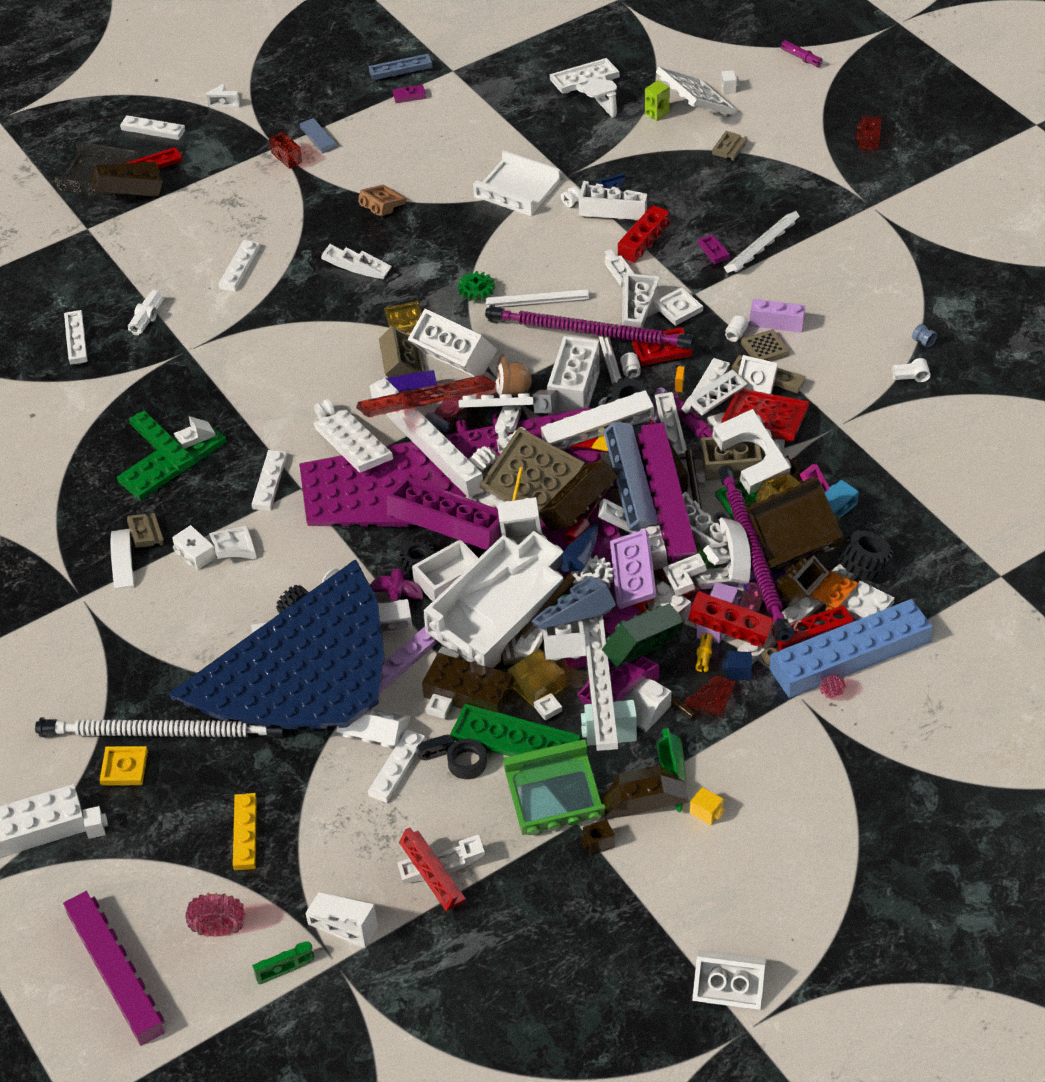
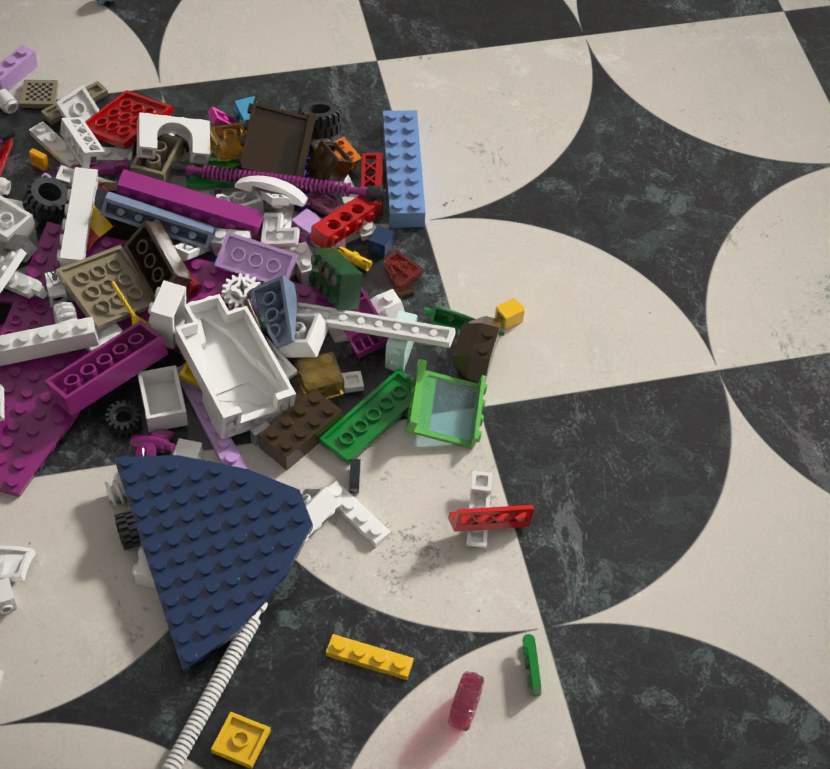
camera: 75 degrees left, 5 degrees up
(343, 918) = (509, 601): white wedge -> none
(439, 706) = (309, 459): white plate -> none
(470, 771) = (378, 445): black tyre -> none
(580, 550) = (220, 285): dark blue piece -> none
(599, 829) = (509, 388): dark brown brick -> none
(729, 979) = (675, 359): white slope -> none
(765, 655) = (381, 219): dark tan plate -> none
(832, 685) = (434, 193): clear pink gear -> none
(866, 601) = (363, 141): white plate -> none
(917, 369) = (138, 15): white piece -> none

